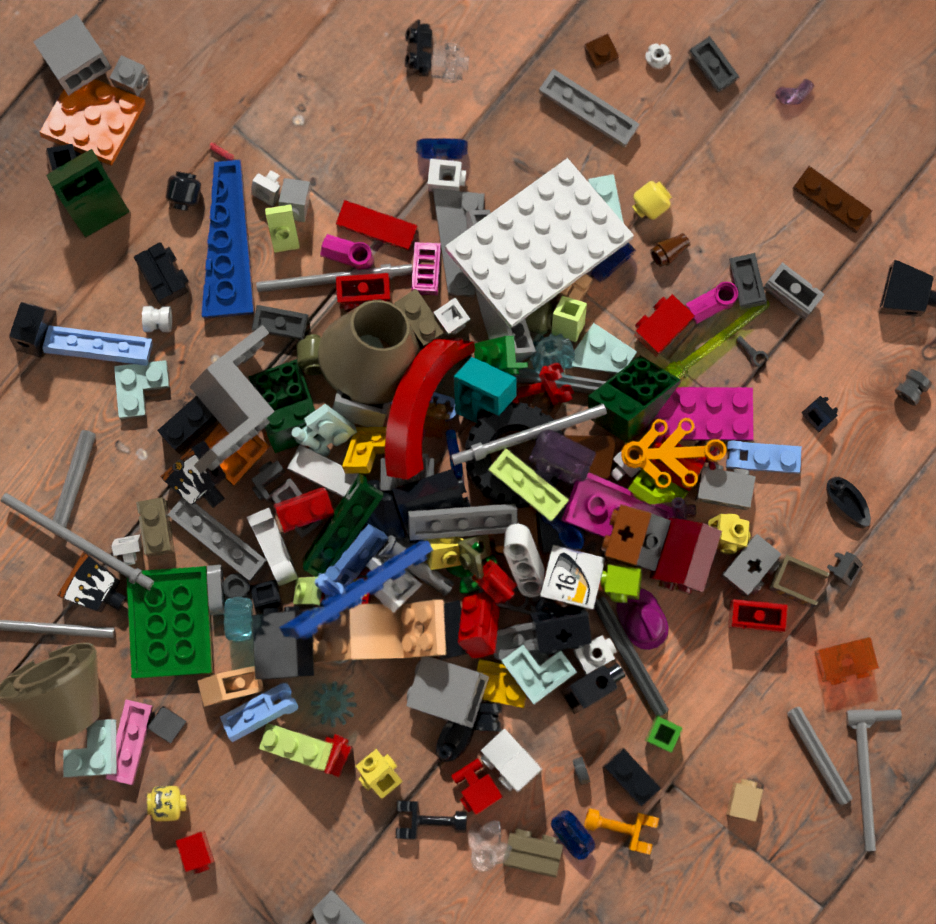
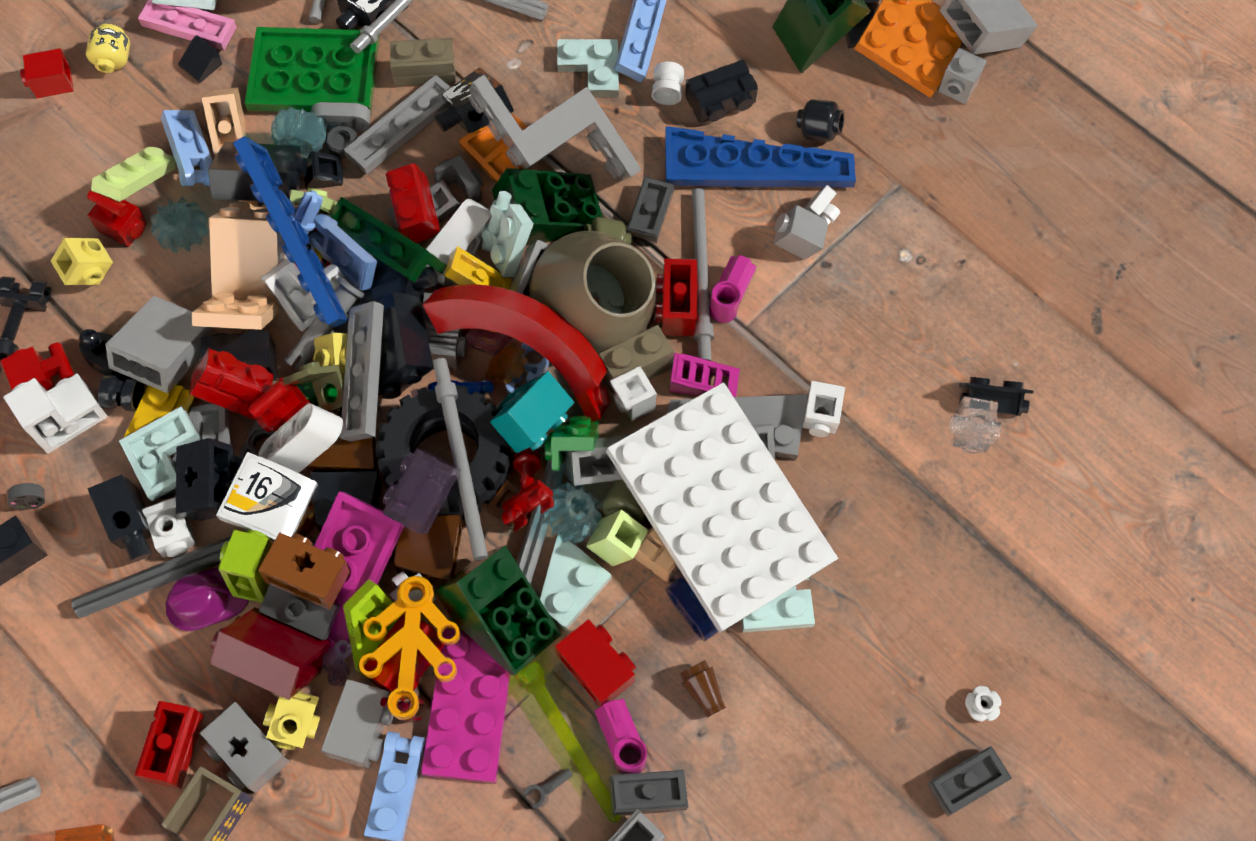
camera: 90 degrees right, 15 degrees down
(128, 547) = (405, 29): white tile -> none
(187, 425) = (532, 93): black brick -> none
(226, 156) = (868, 167): coral leg -> none
(273, 546) = (370, 182): white leg -> none
(282, 228) = (765, 213): yellowish green plate -> none
(376, 225) = (764, 327): red tile -> none
(432, 147) = (860, 420): clear blue plate -> none
(528, 485) = (390, 446): yellowish green plate -> none
(568, 535) = (321, 502): clear blue piece -> none
(589, 108) = (909, 601): light grey plate -> none
(601, 51) = (991, 628): reddish brown plate -> none
(651, 200) = (774, 669): light yellow head -> none
(663, 734) = (41, 599): bright green brick -> none

